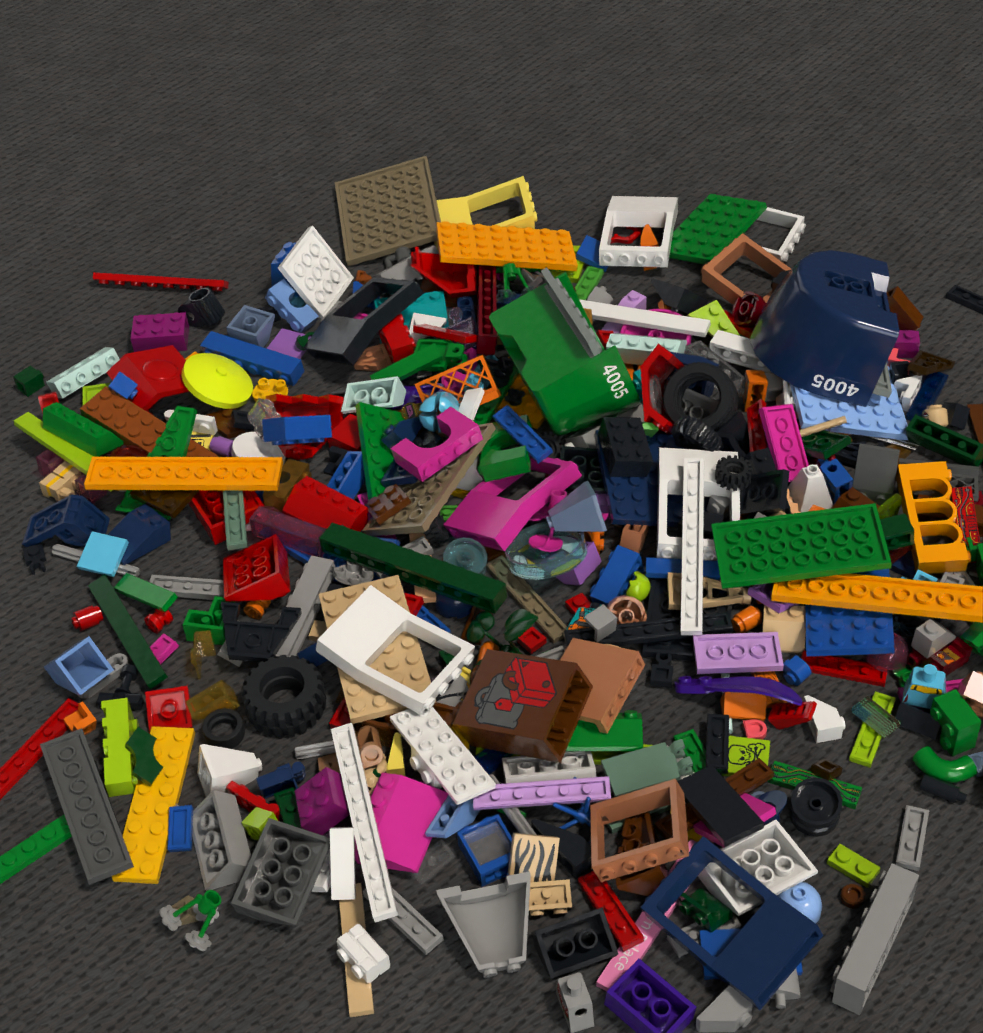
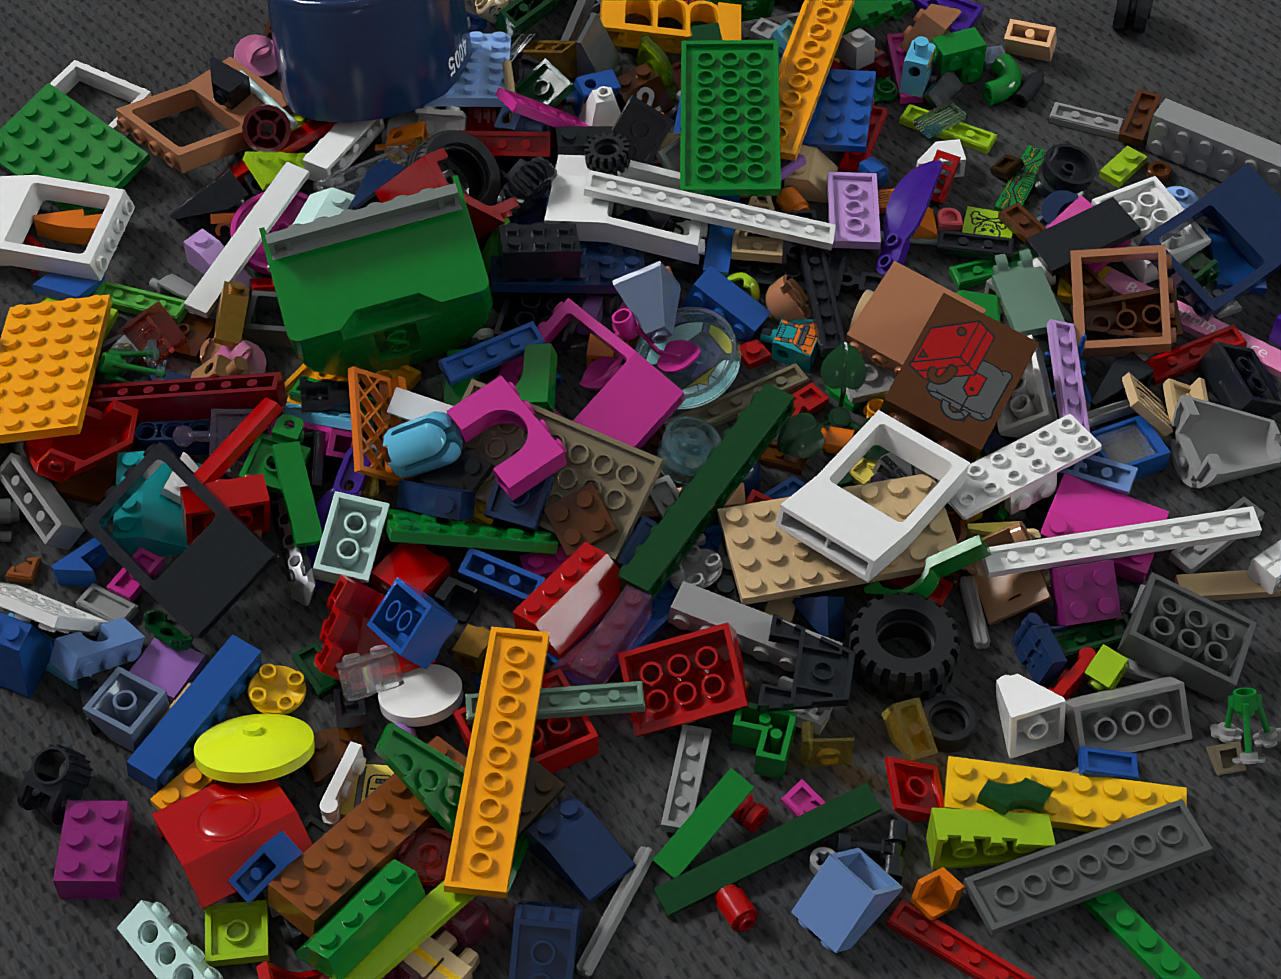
camera: 90 degrees left, 5 degrees up
(102, 554) = (619, 888): medium azure tile -> none
(335, 697) = (938, 567): none -> green piece
(342, 863) = (1173, 568): white tile -> none
(410, 410) = (390, 493): tile -> none
(602, 621) = (823, 303): light grey panel -> none
(933, 881) = (1139, 117): none -> reddish brown plate

